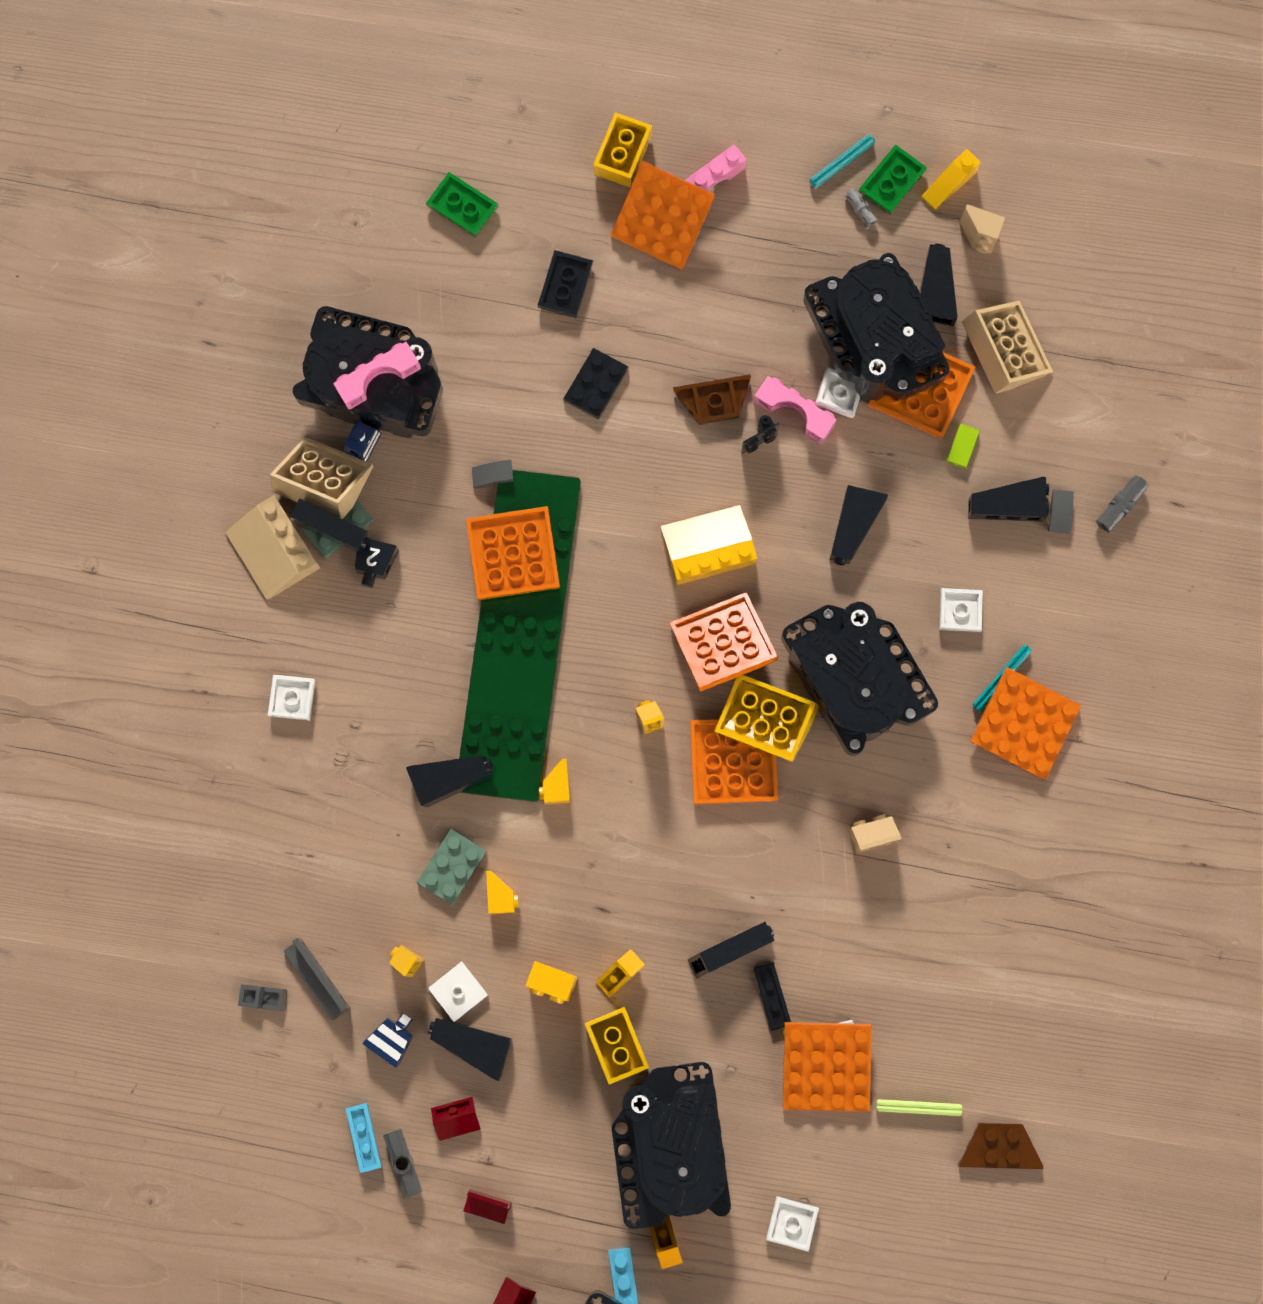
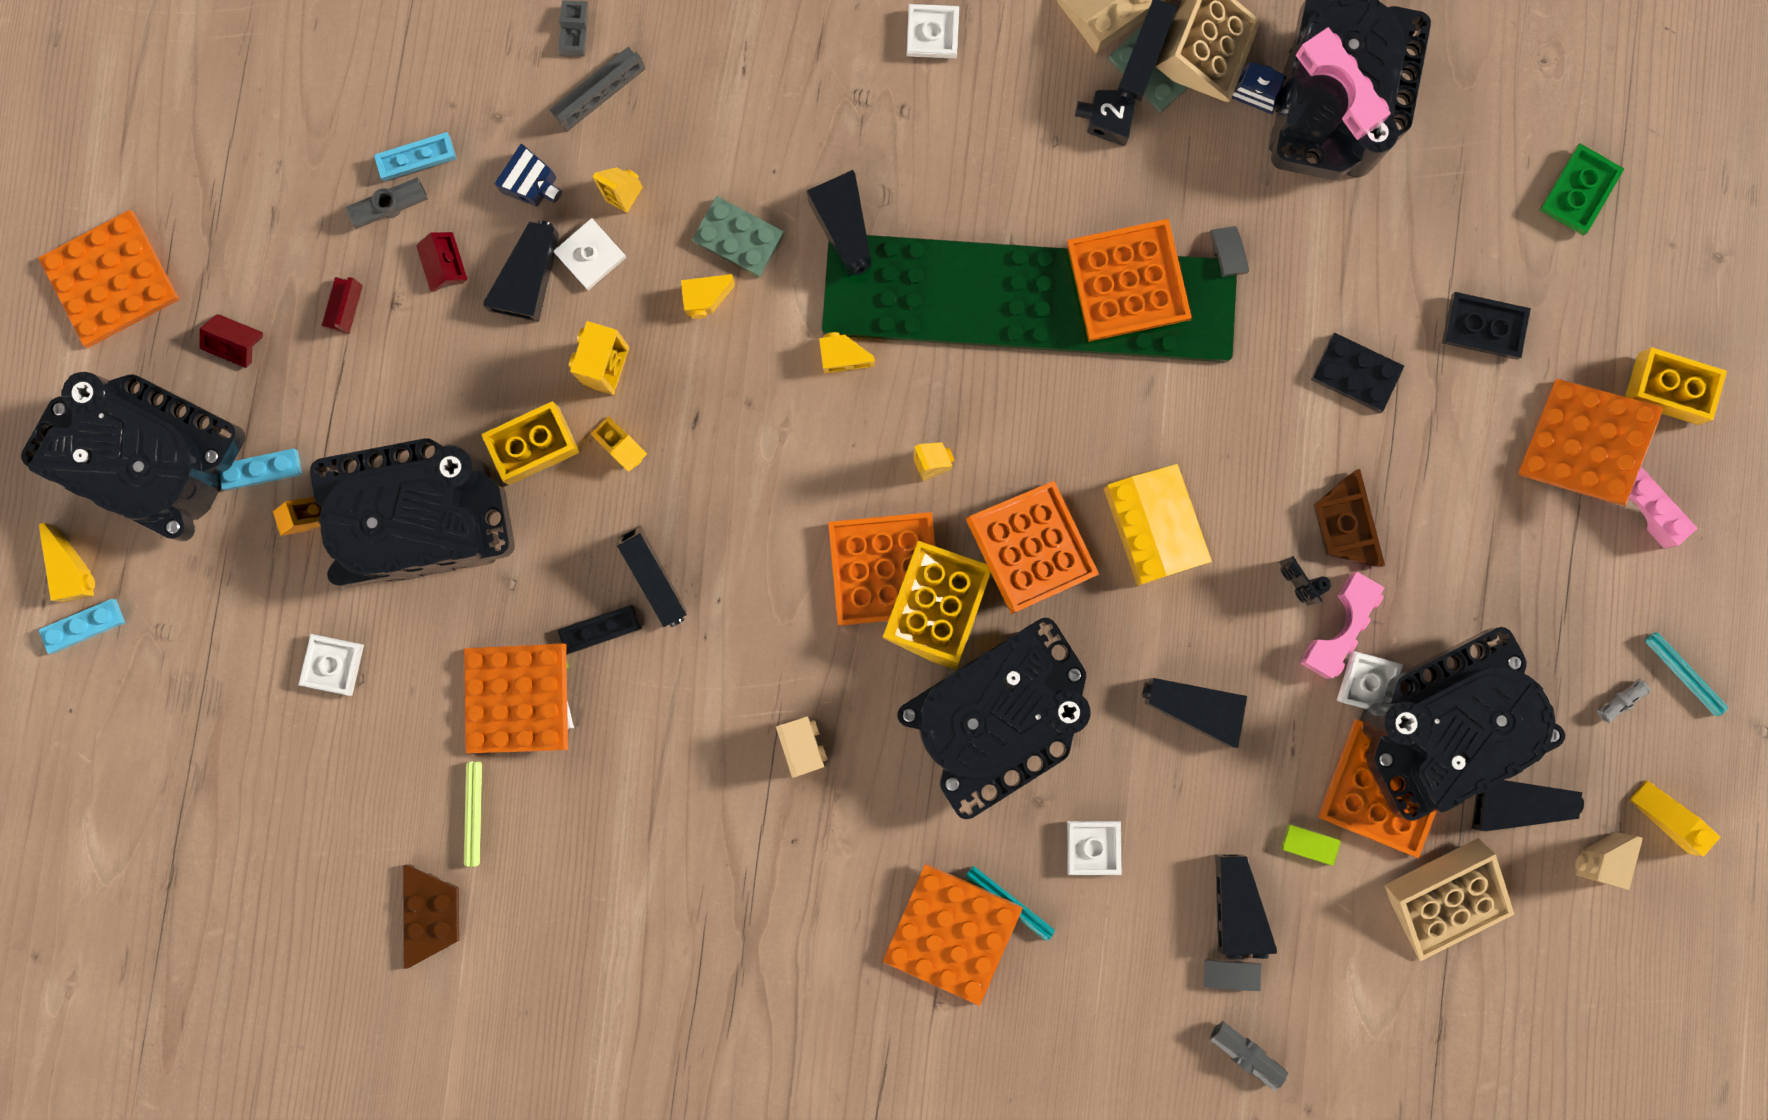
camera: 85 degrees right, 5 degrees up
(892, 179) = (1667, 741): green plate -> none

